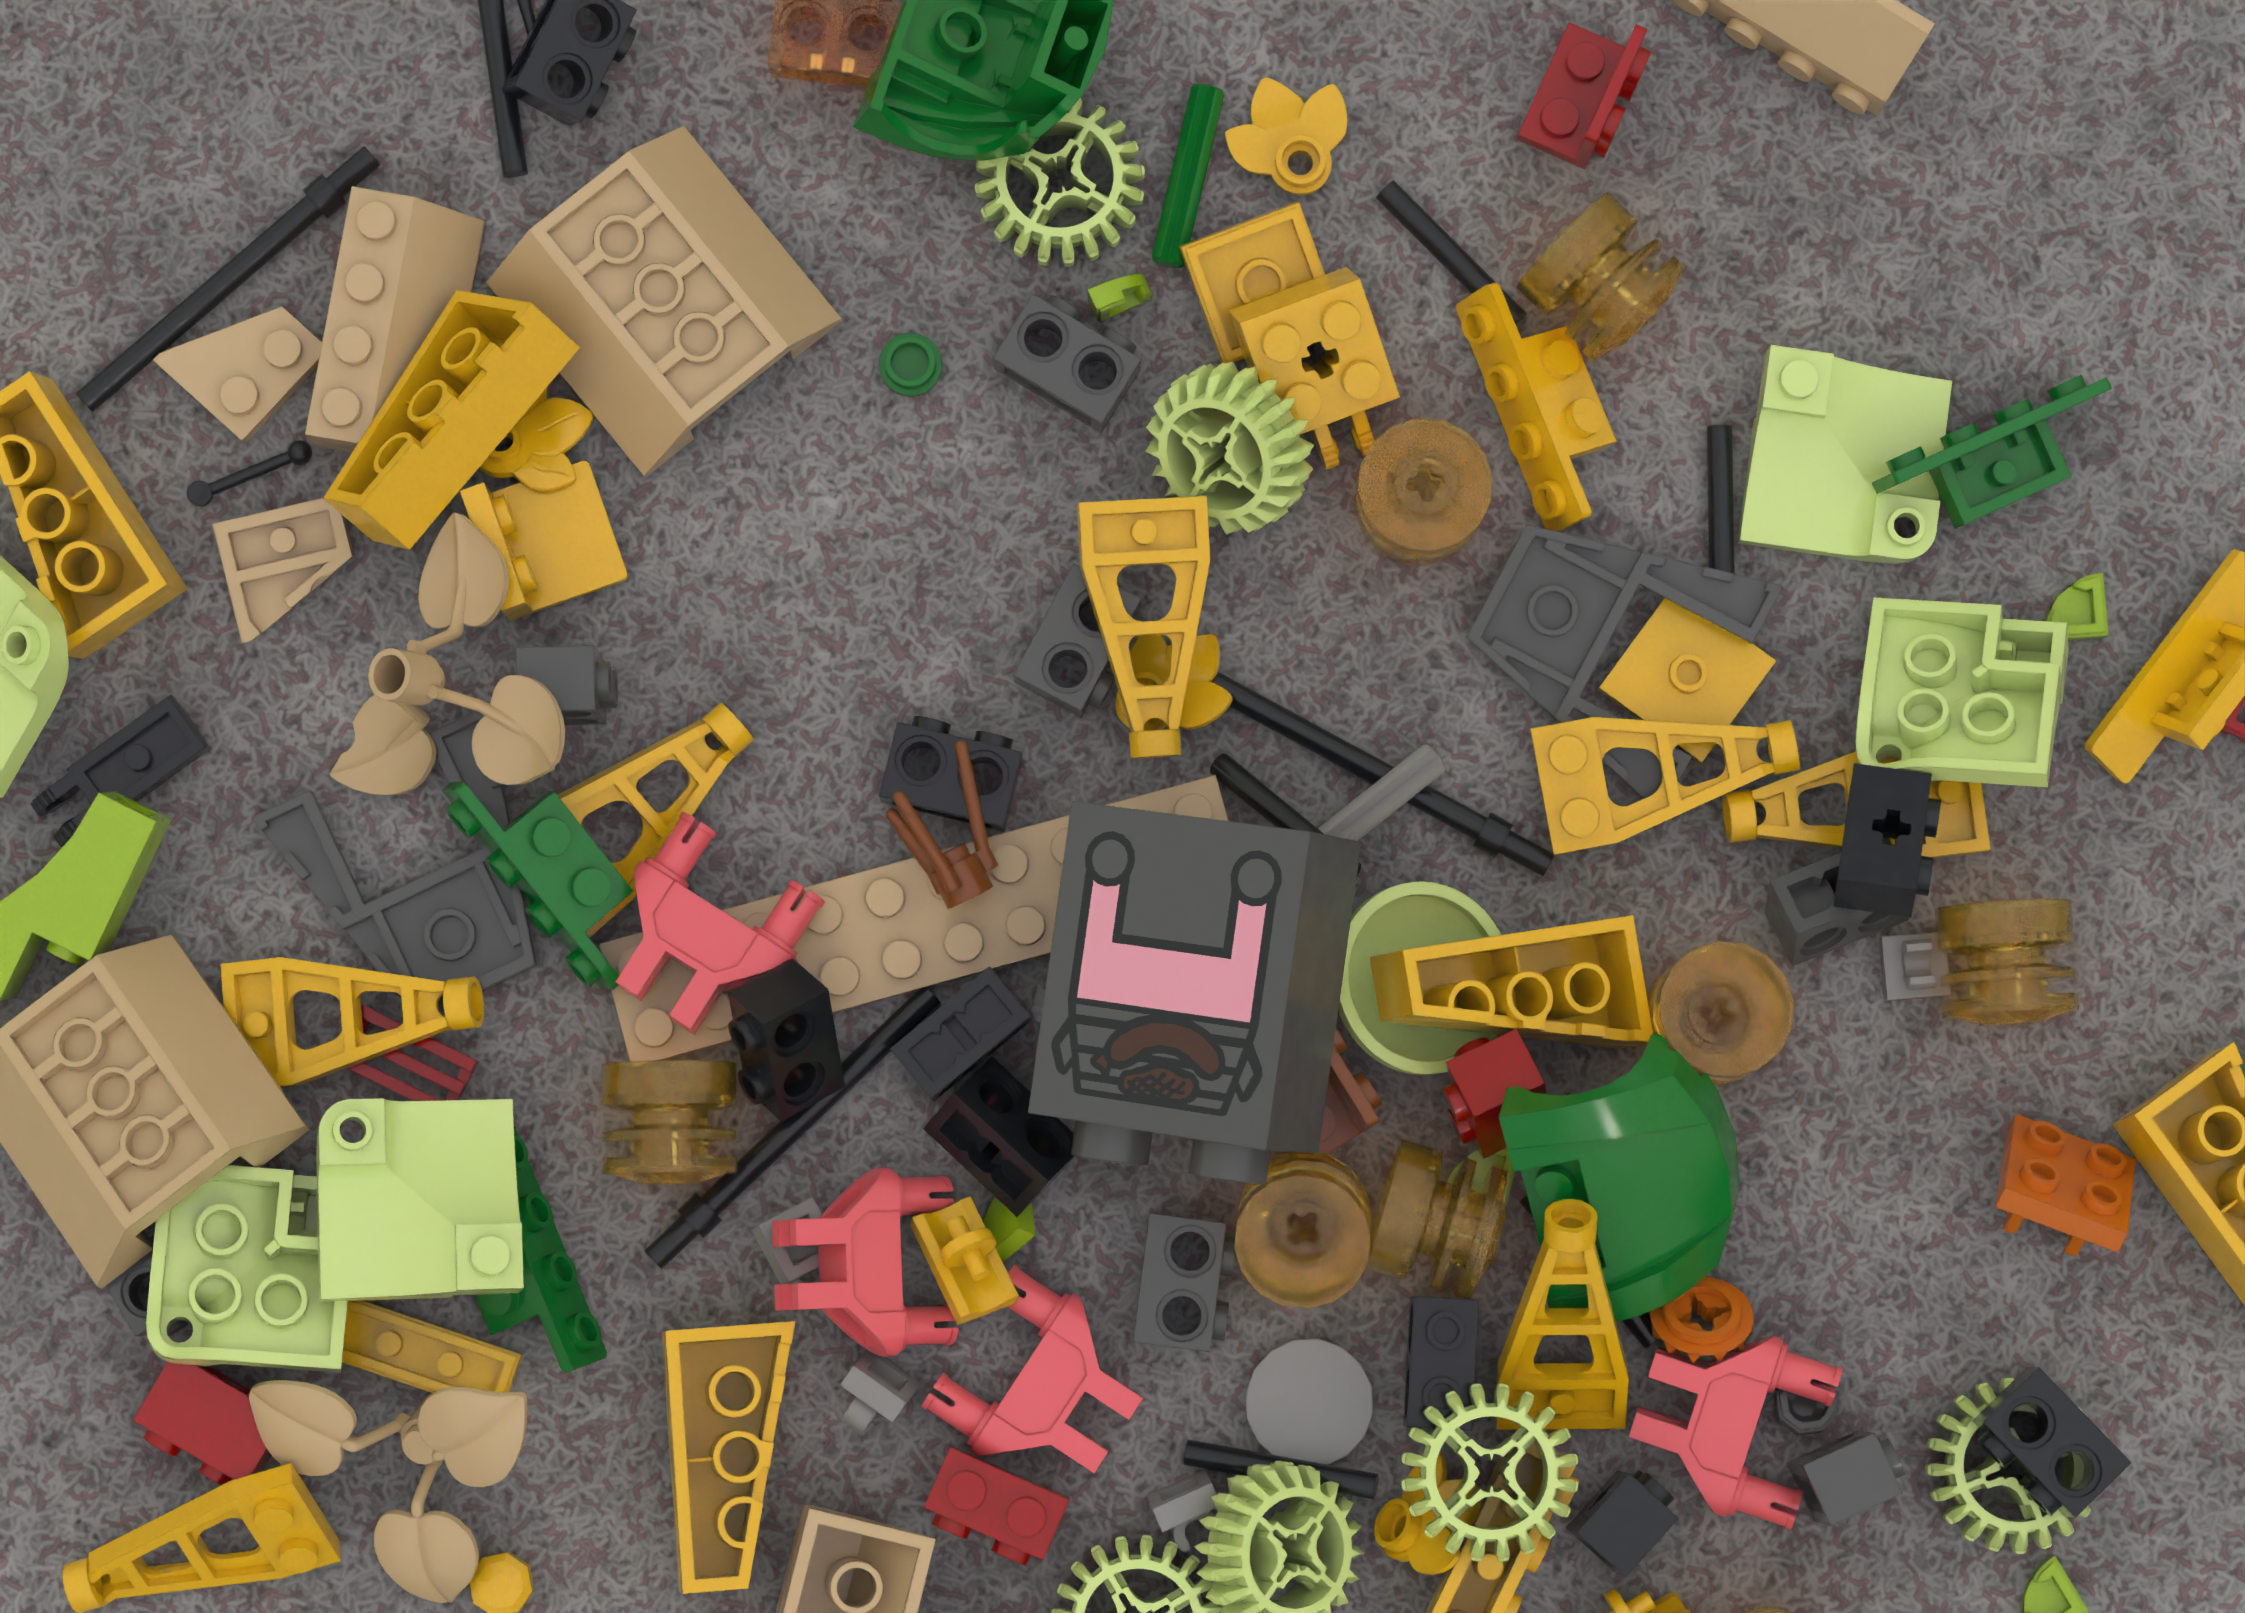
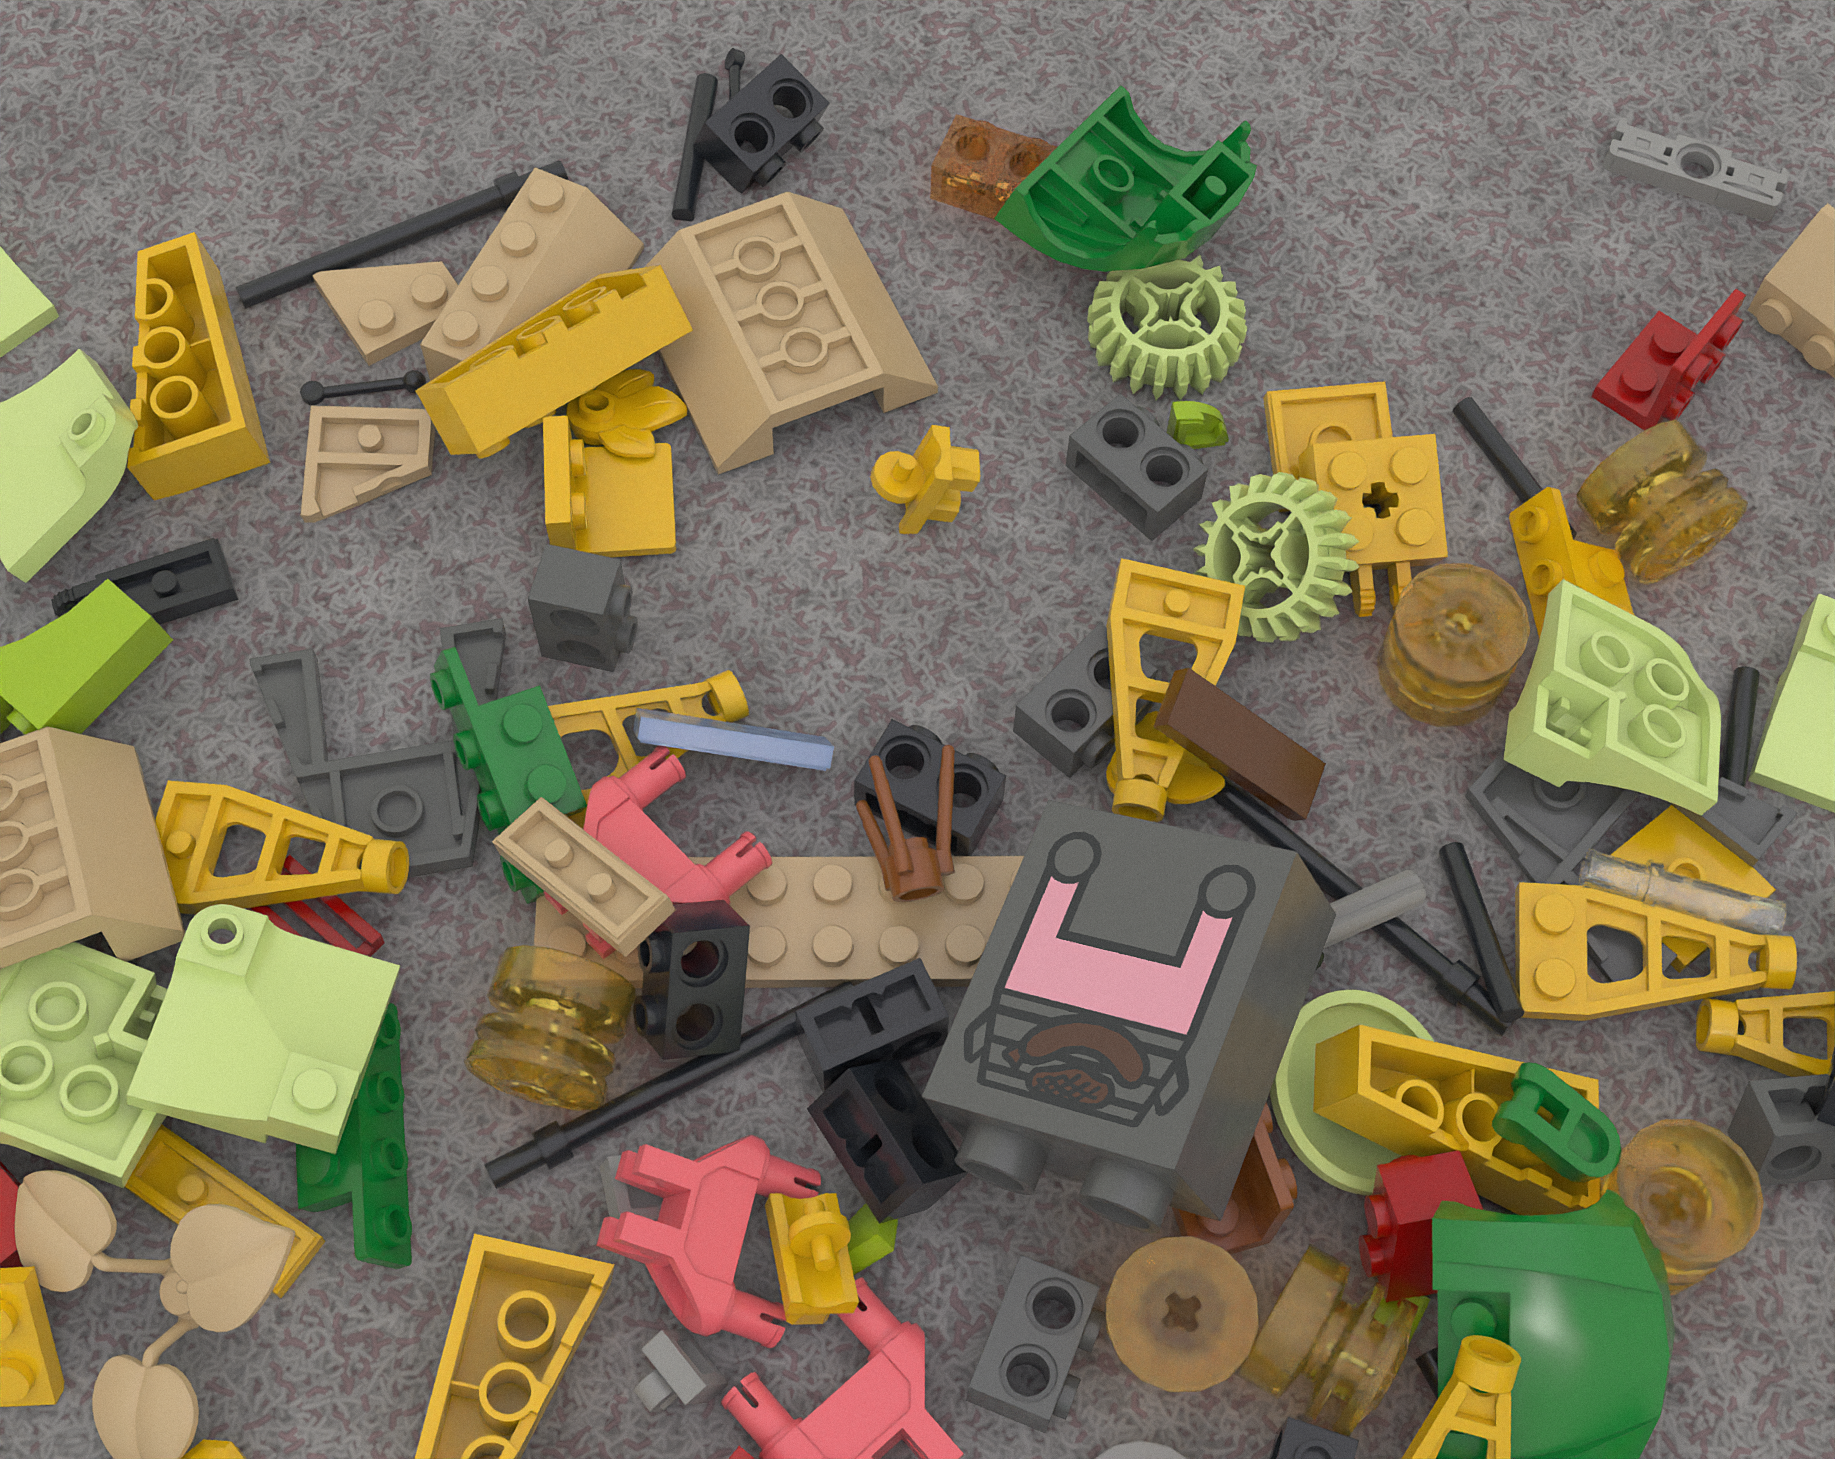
camera: 15 degrees right, 20 degrees down
(522, 724) = (522, 610): tan plant -> none
(659, 979) = (584, 876): none -> tan tile
(749, 780) = (732, 739): none -> medium blue tile
(859, 446) = (927, 480): none -> yellow hips
(910, 364) = (993, 436): green plate -> none
(1187, 174) = (1283, 350): green axle -> none
(1237, 660) = (1239, 744): none -> reddish brown tile
(1287, 128) = (1381, 337): yellow plate -> none
(1504, 780) = (1481, 932): none -> black bar
(1592, 524) = (1615, 706): none -> yellowish green slope
(1621, 987) = (1579, 1138): none -> green plate
(1674, 700) = (1681, 893): none -> clear pin

